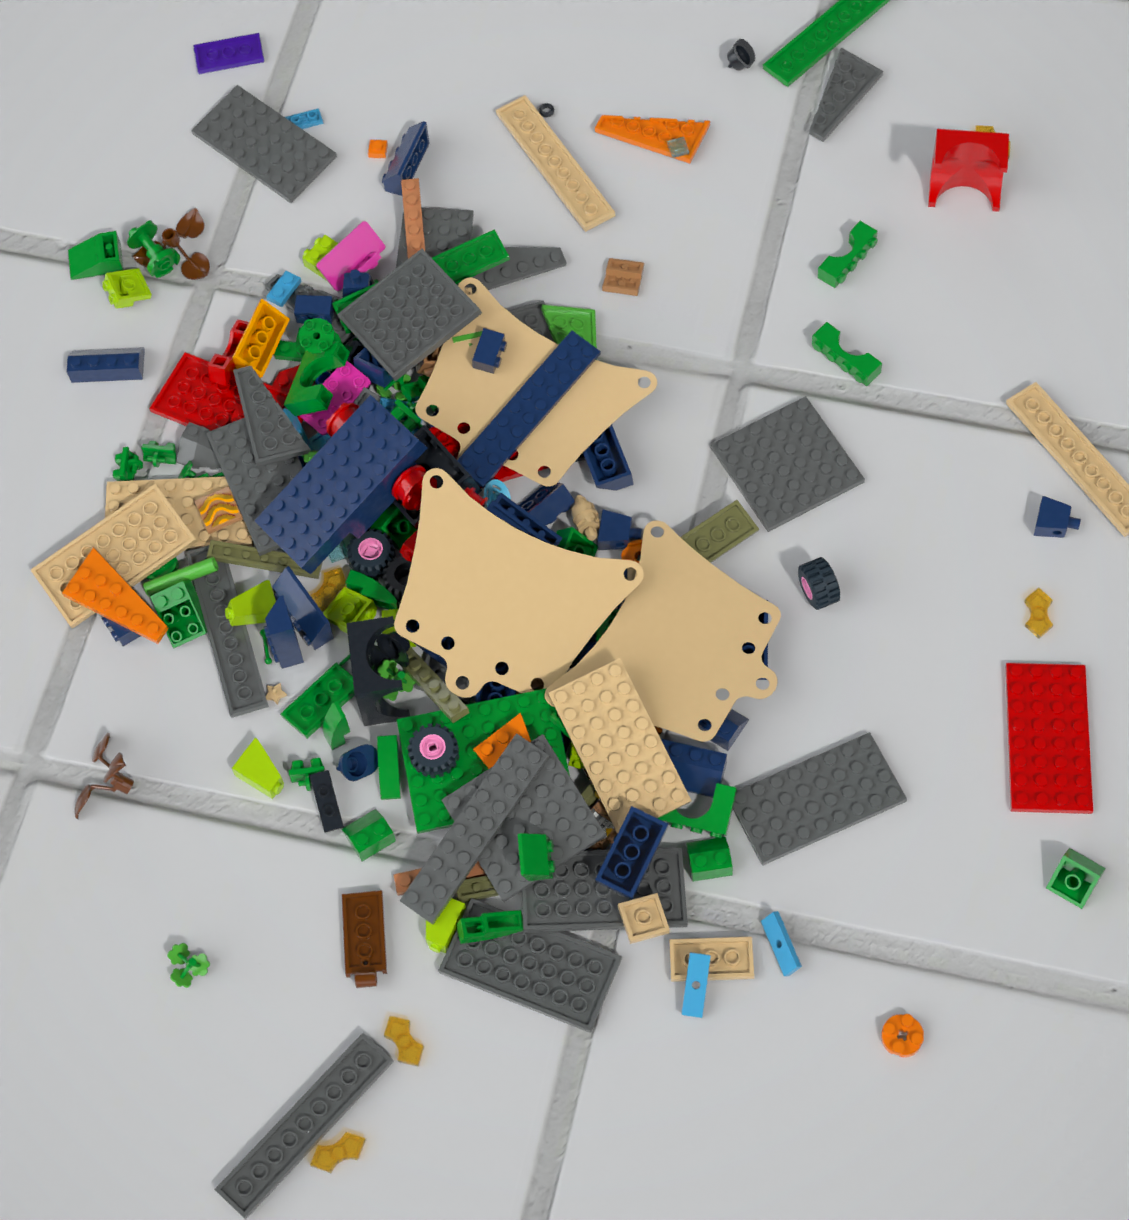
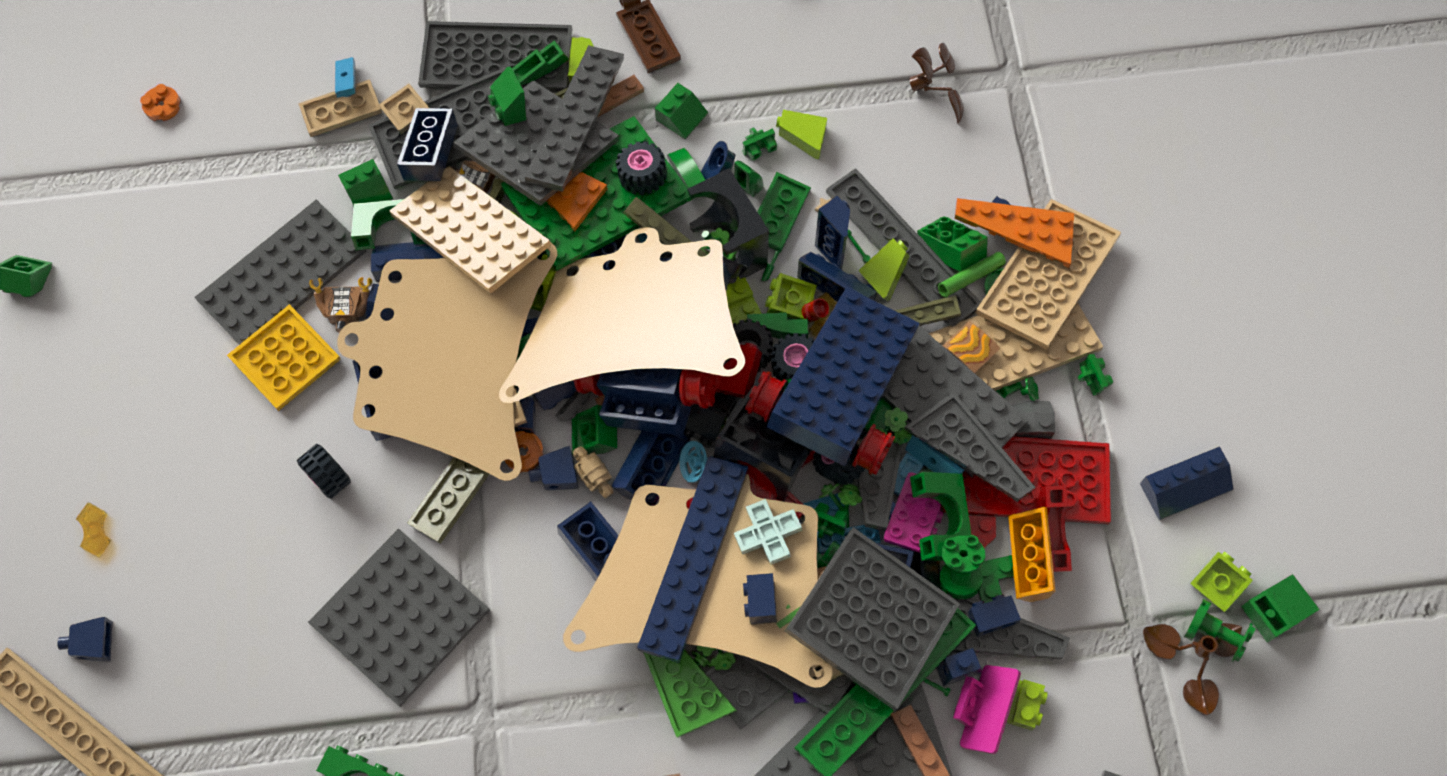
camera: 155 degrees right, 5 degrees up
(159, 454) = (1061, 402): green hips -> none
(283, 288) = (1044, 636): dark azure plate -> none
(326, 801) = (729, 123): black plate -> none
(334, 586) = (815, 310): none -> red wheel
(461, 402) = (768, 531): none -> light aqua plate
(762, 741) = (342, 304): none -> torso
(781, 943) = (281, 137): dark azure tile -> none
(832, 710) = (284, 357): none -> yellow plate
(1048, 738) = (66, 404): red plate -> none

